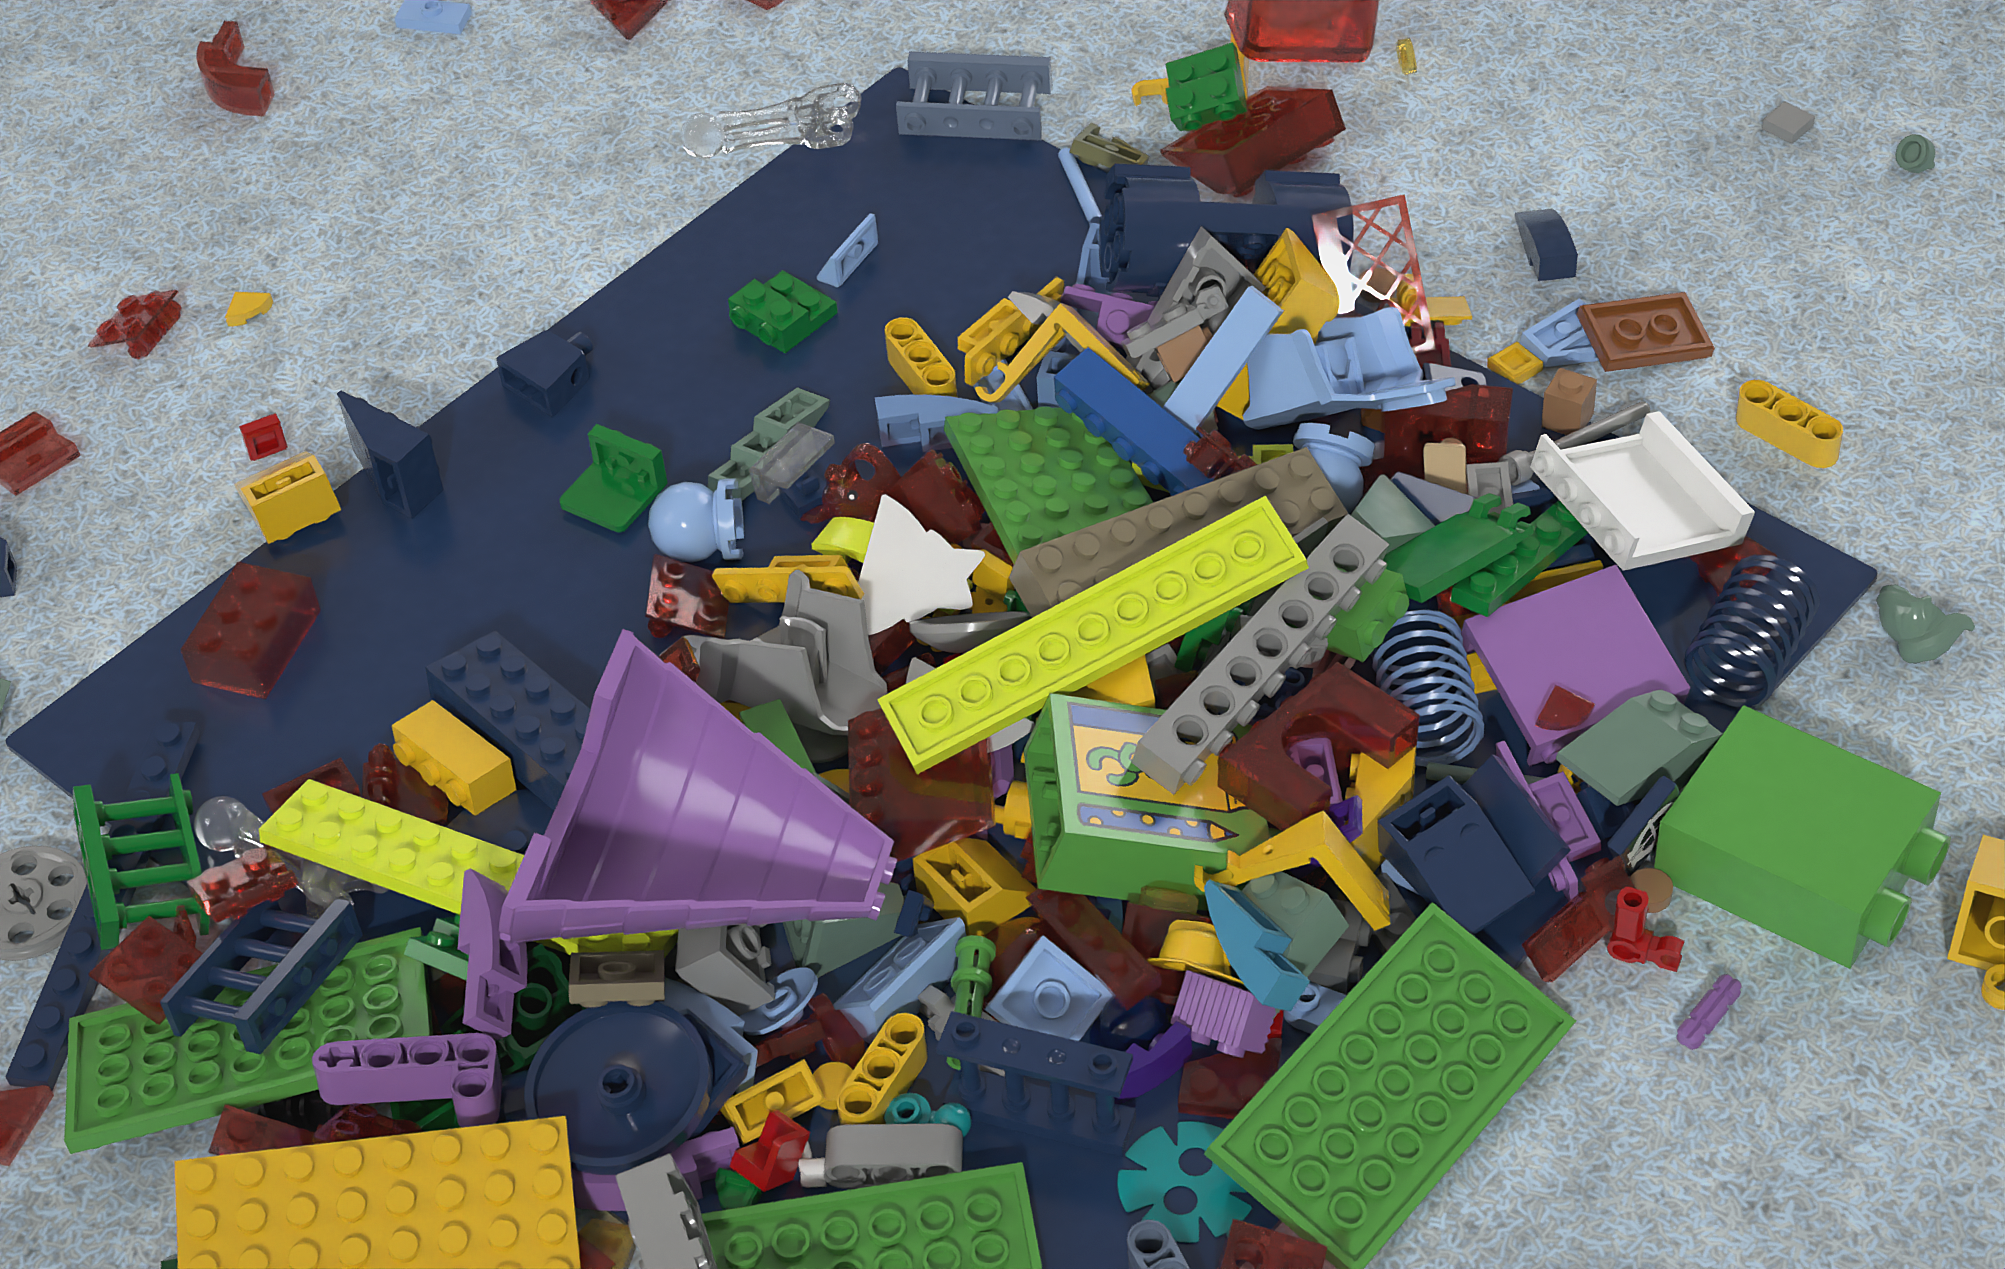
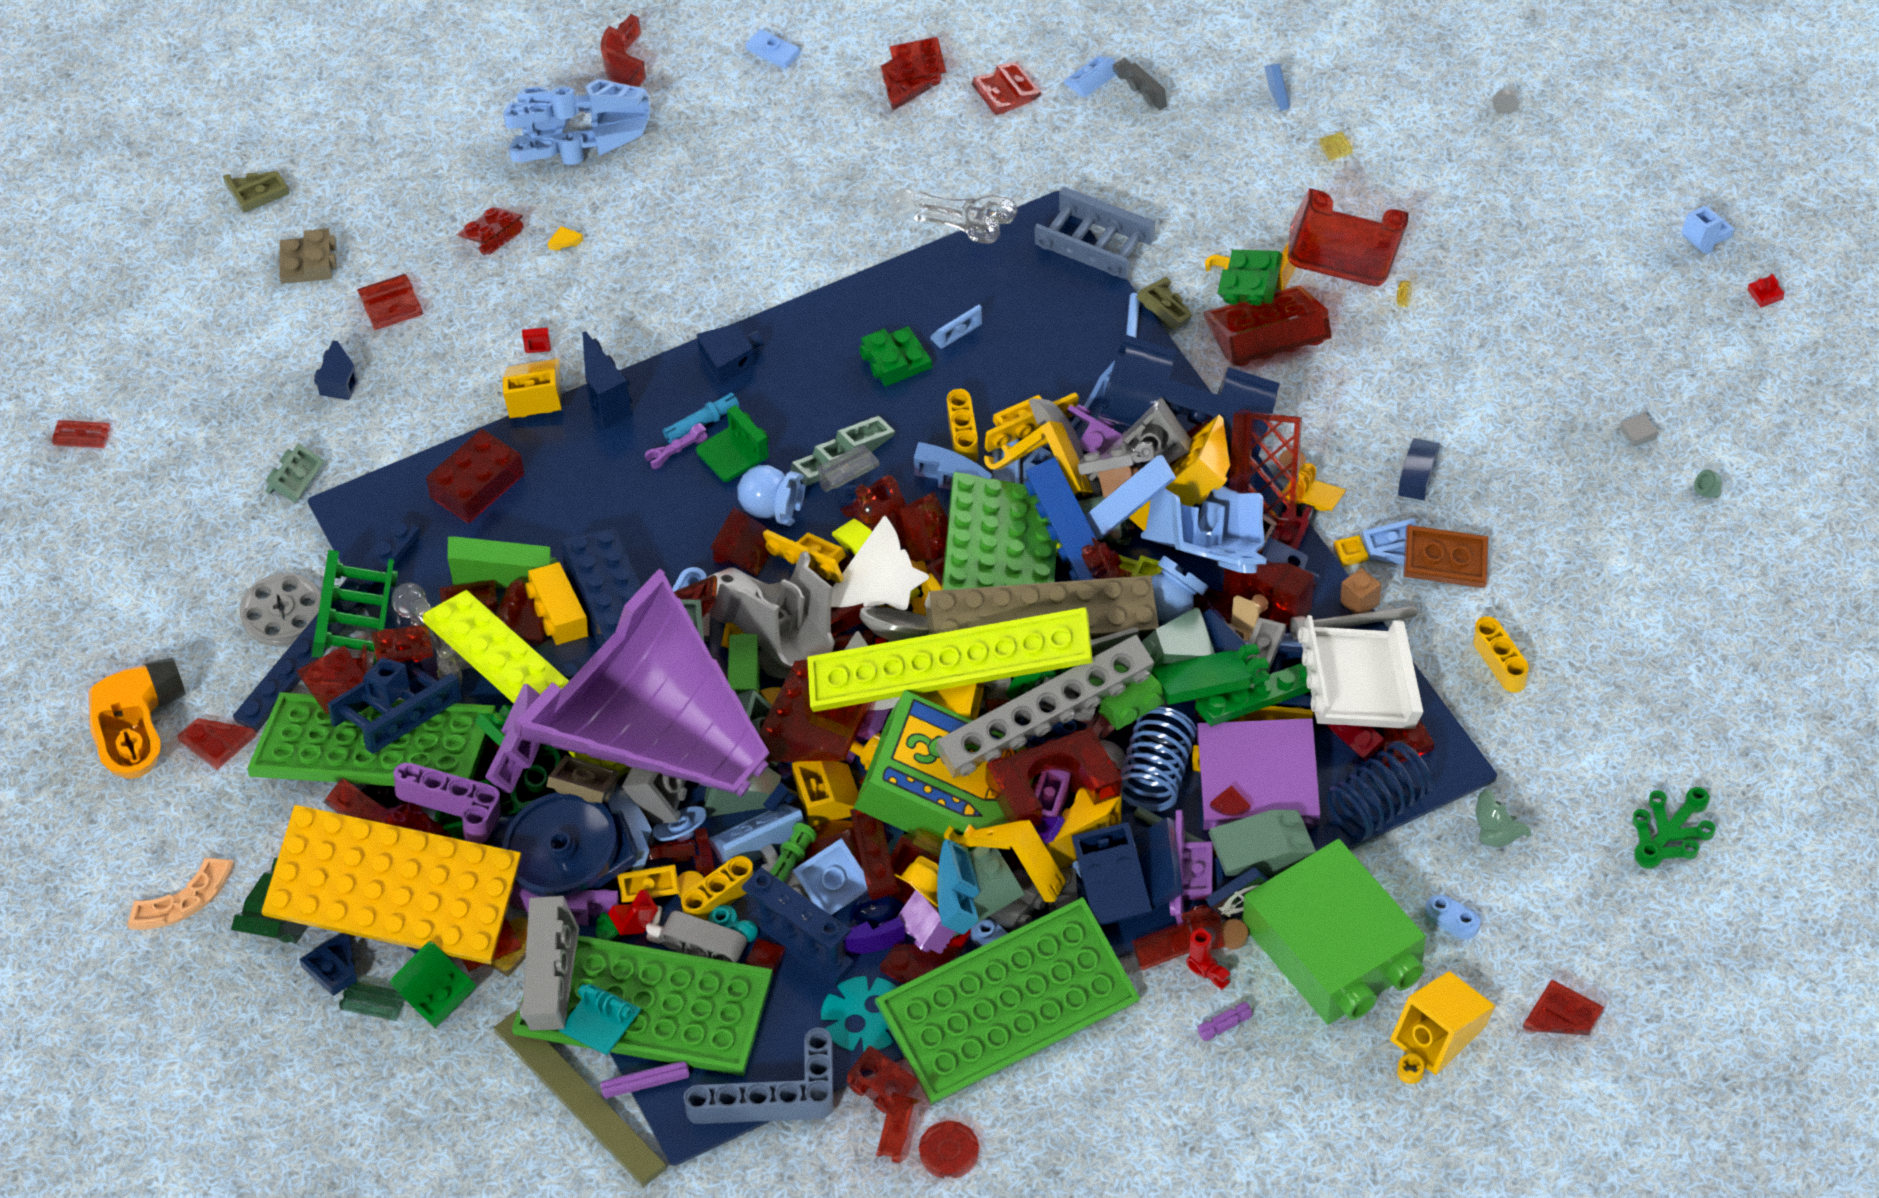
camera: 20 degrees right, 5 degrees up
(241, 940) = (386, 681): none -> dark blue brick
(259, 142) = (616, 111): none -> light blue piece
(322, 730) = (499, 561): none -> bright green slope
(513, 523) = (696, 434): none -> medium lavender piece
(558, 452) = (709, 413): none -> dark azure pin
(997, 1145) = (766, 955): none -> clear red plate
(1674, 580) = (1360, 739): none -> dark red hinge
(1933, 766) = (1451, 916): none -> light blue plate

